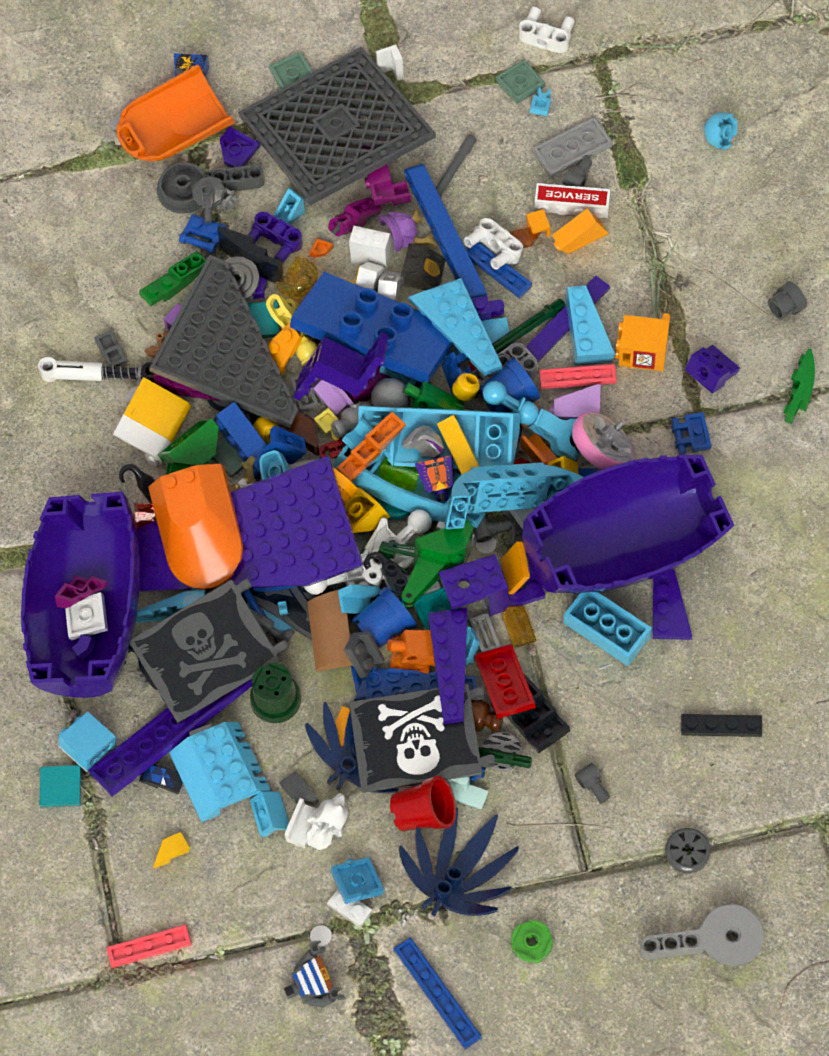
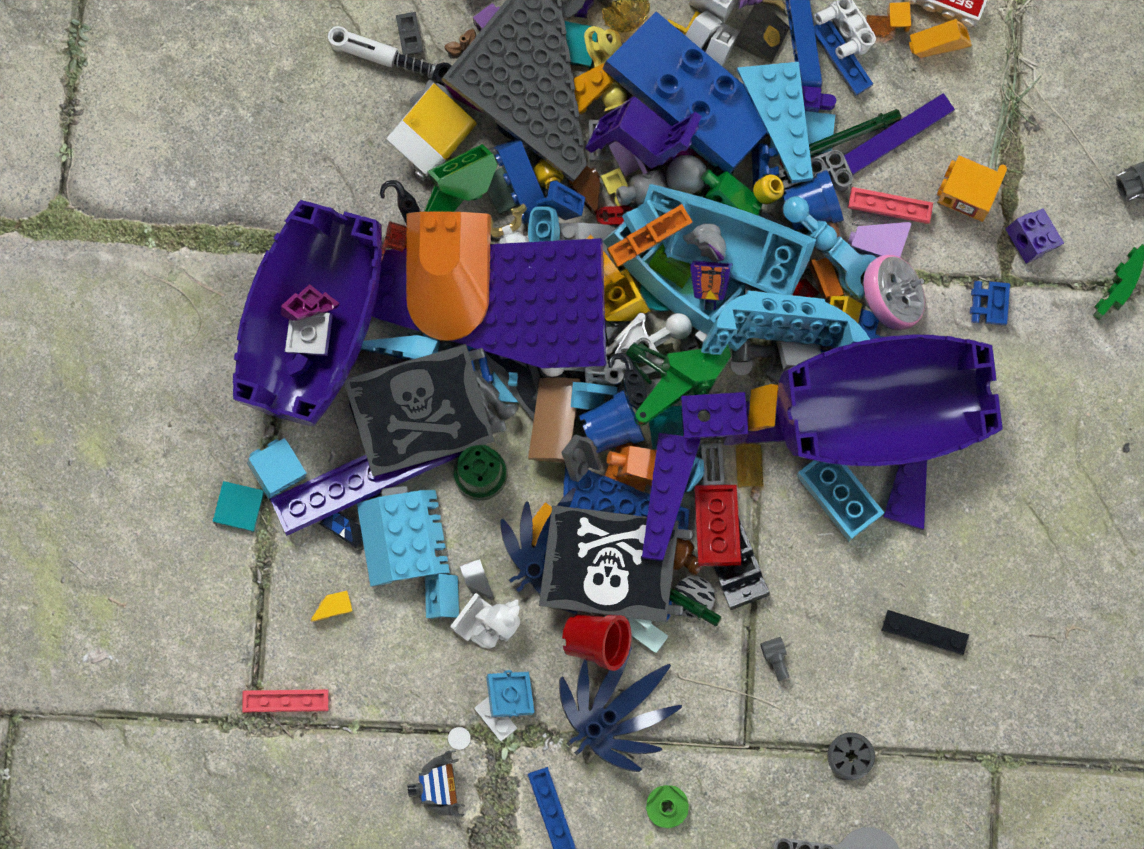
camera: 10 degrees right, 15 degrees up
(458, 444) = (742, 258): yellow tile -> none
(587, 332) = (914, 158): medium azure wedge -> none

